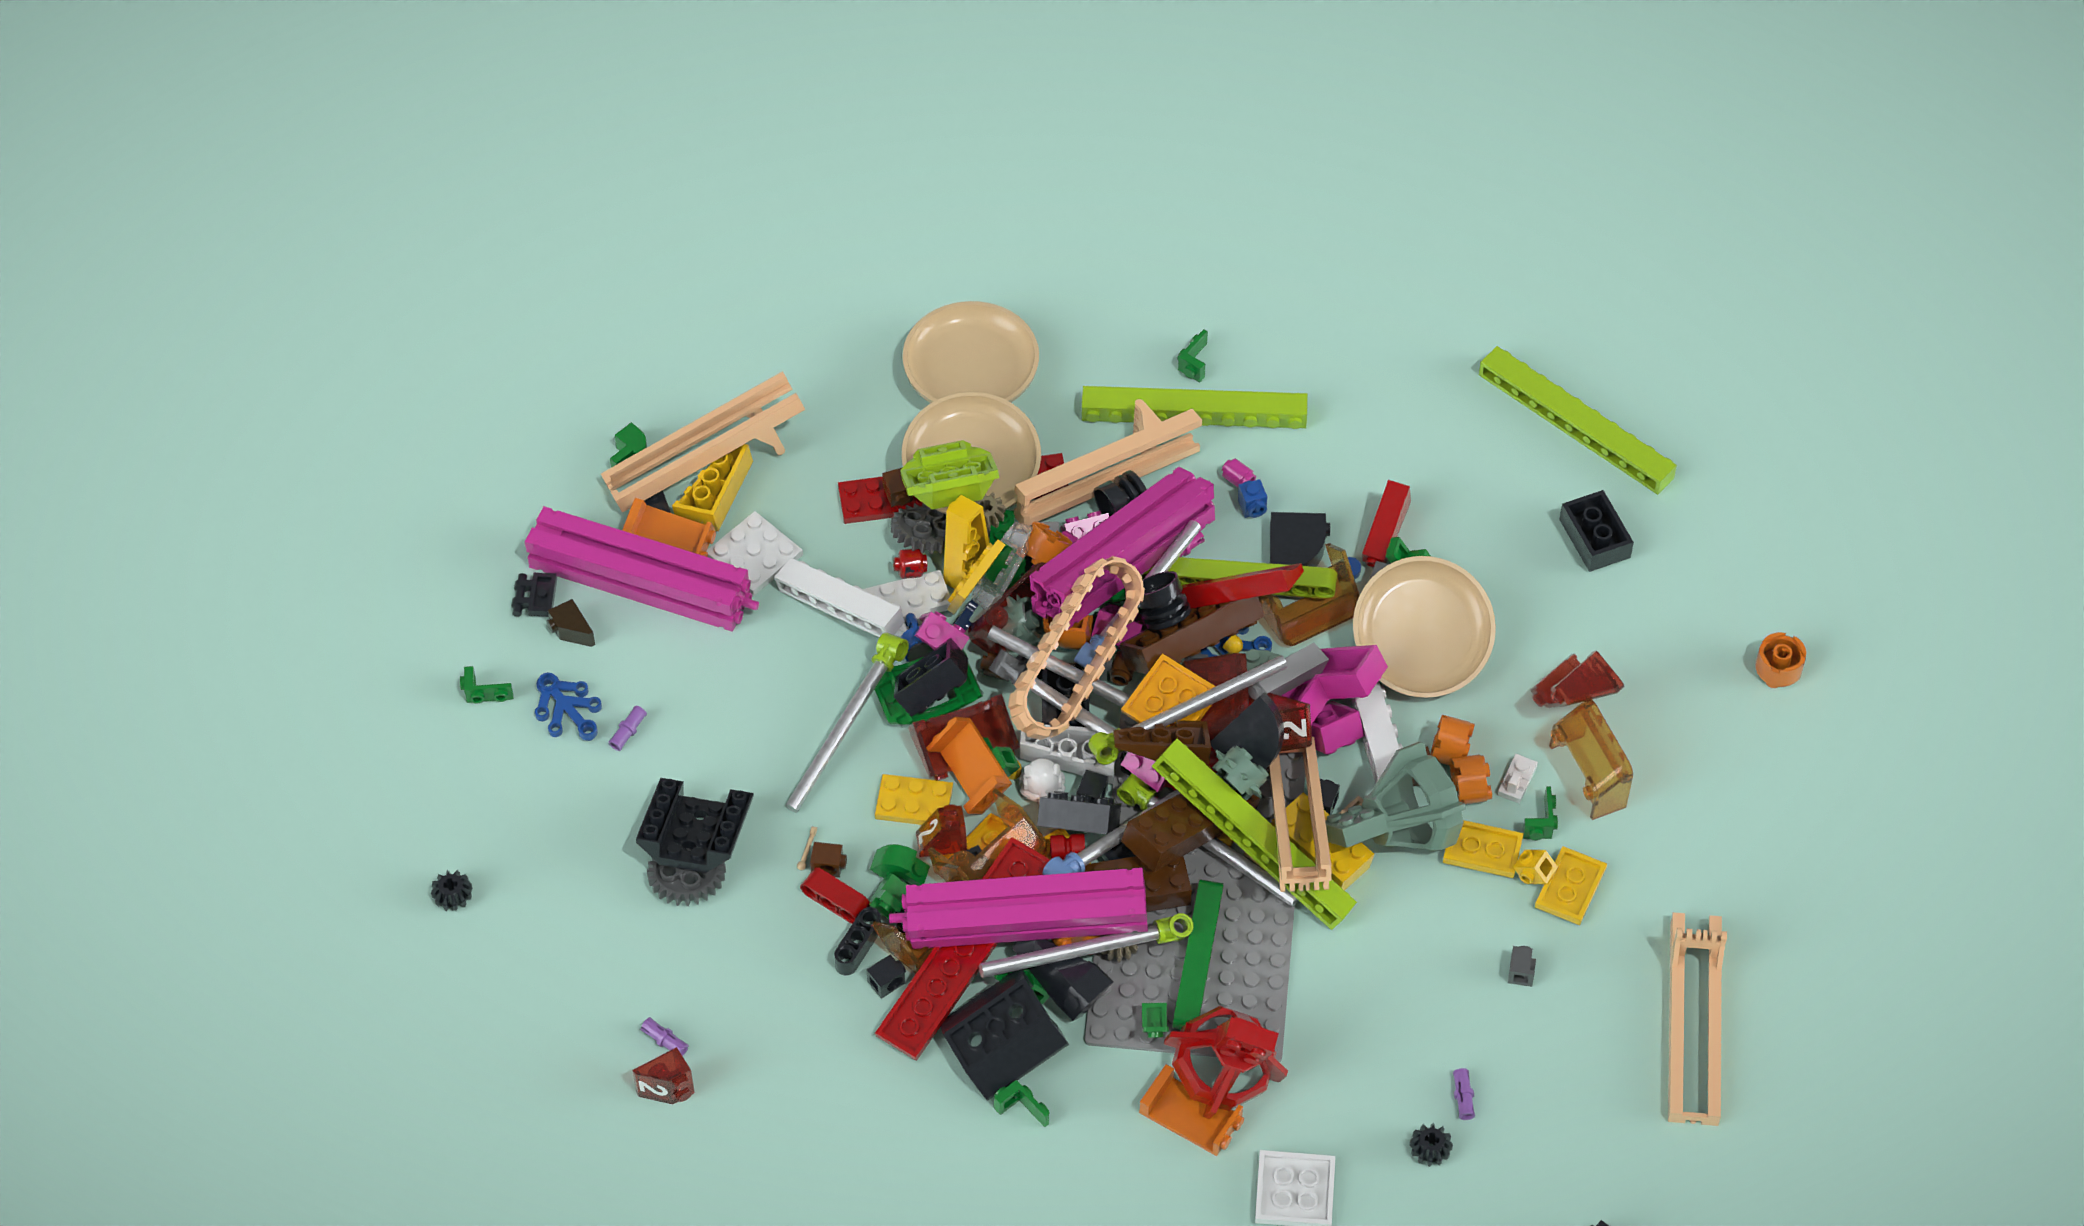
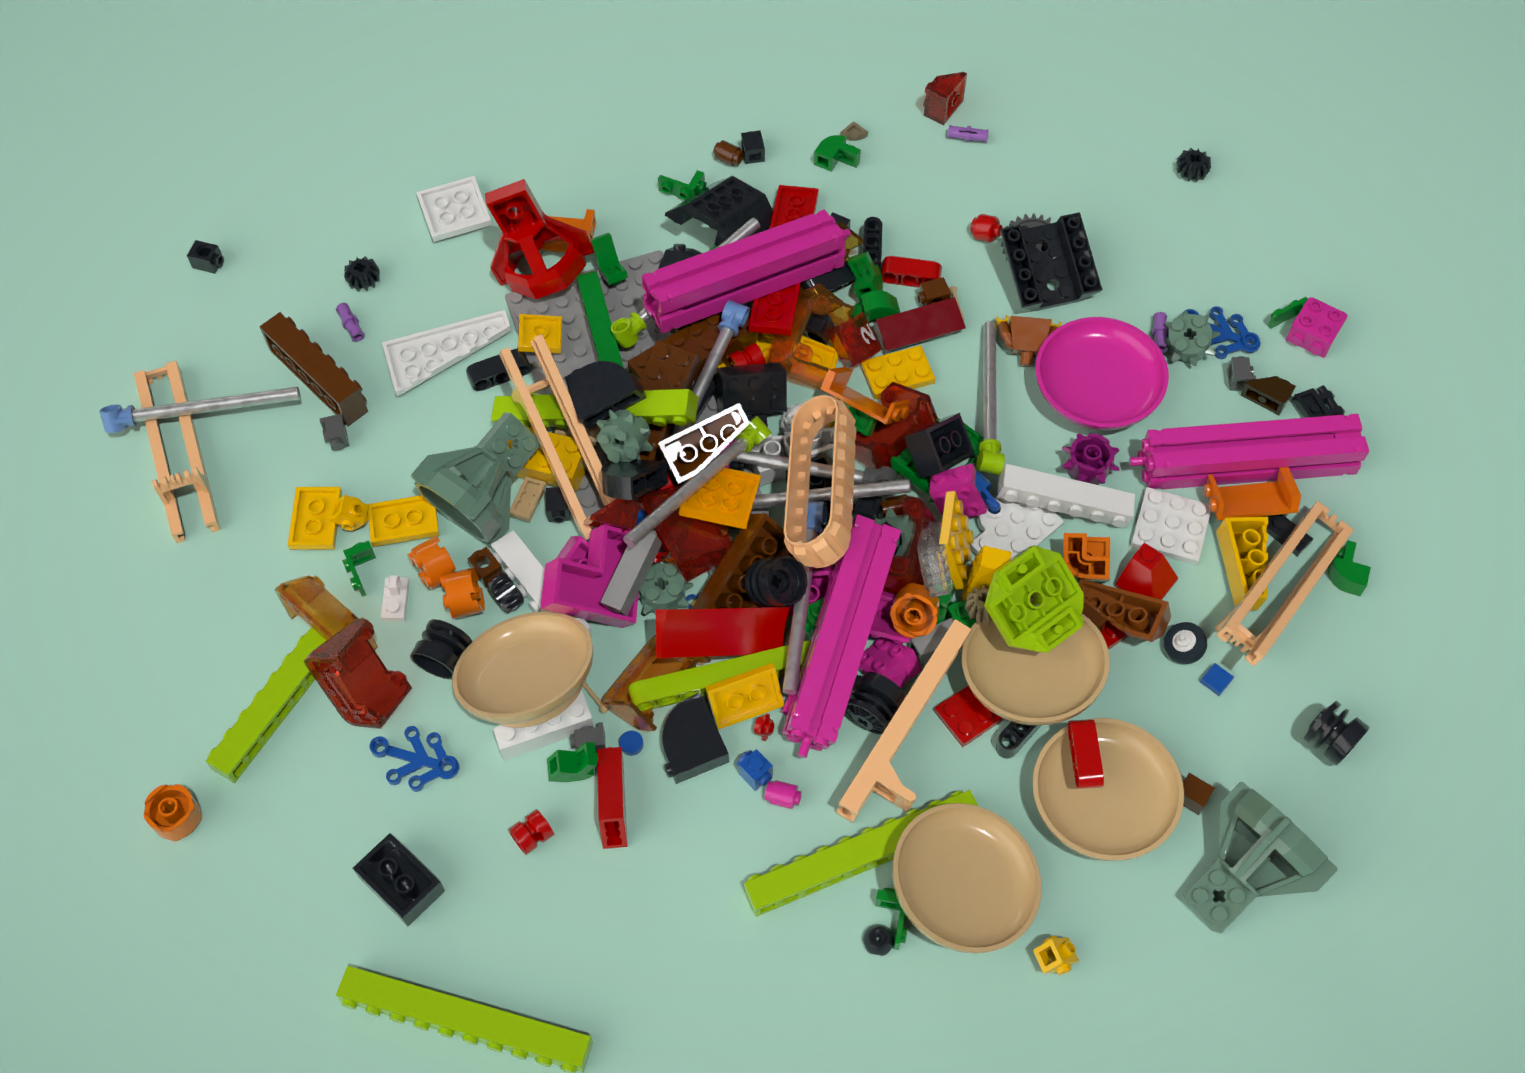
camera: 155 degrees right, 5 degrees up
(475, 659) = (1316, 327): none -> dark pink bracket
(584, 654) = (1239, 372): none -> dark grey brick
(609, 698) = (1190, 326): none -> sand green brick
(724, 910) = (986, 228): none -> red head
(726, 689) = (1101, 373): none -> dark pink dish
(750, 328) = (1336, 732): none -> black wheel
(764, 770) = (1025, 335): none -> dark orange torso
(788, 1100) = (854, 132): none -> dark tan tile
(790, 628) = (1090, 458): none -> magenta brick
(811, 419) = (1217, 679): none -> blue tile
(811, 518) = (1147, 574): none -> red slope
(819, 449) = (1185, 643): none -> black wheel
(830, 1077) = (833, 150): none -> green brick
(855, 479) = (1128, 611): none -> dark orange wedge
(855, 543) = (1087, 556): none -> orange brick
(863, 830) = (918, 324): none -> dark red brick
(891, 267) = (1246, 869): none -> sand green plate
(893, 340) = (1196, 793): none -> reddish brown brick
(916, 1121) = (753, 147): none -> black brick
(948, 1125) = (728, 153): none -> reddish brown brick
(977, 371) = (1085, 754): none -> red beam
(1085, 279) = (1056, 955): none -> yellow brick
(1129, 335) = (966, 878): none -> tan dish
(1216, 355) = (878, 947): none -> black plate
(1226, 530) = (764, 726): none -> red plate
(1232, 552) = (745, 696): none -> yellow plate
(1241, 813) = (602, 388): none -> black brick
(1265, 980) = (535, 325): none -> yellow plate
(1324, 967) = (492, 371): none -> black beam
(1384, 1019) = (429, 352): none -> white wing
(1410, 726) = (505, 593): none -> black gear
(1472, 525) = (532, 831): none -> red wheel
(1491, 695) = (440, 648): none -> black wheel
(1522, 1035) = (314, 368): none -> reddish brown brick
(1546, 628) = (417, 760): none -> blue plant
(1674, 715) = (265, 712): none -> lime brick
(1735, 1056) = (117, 419): none -> flat silver piece

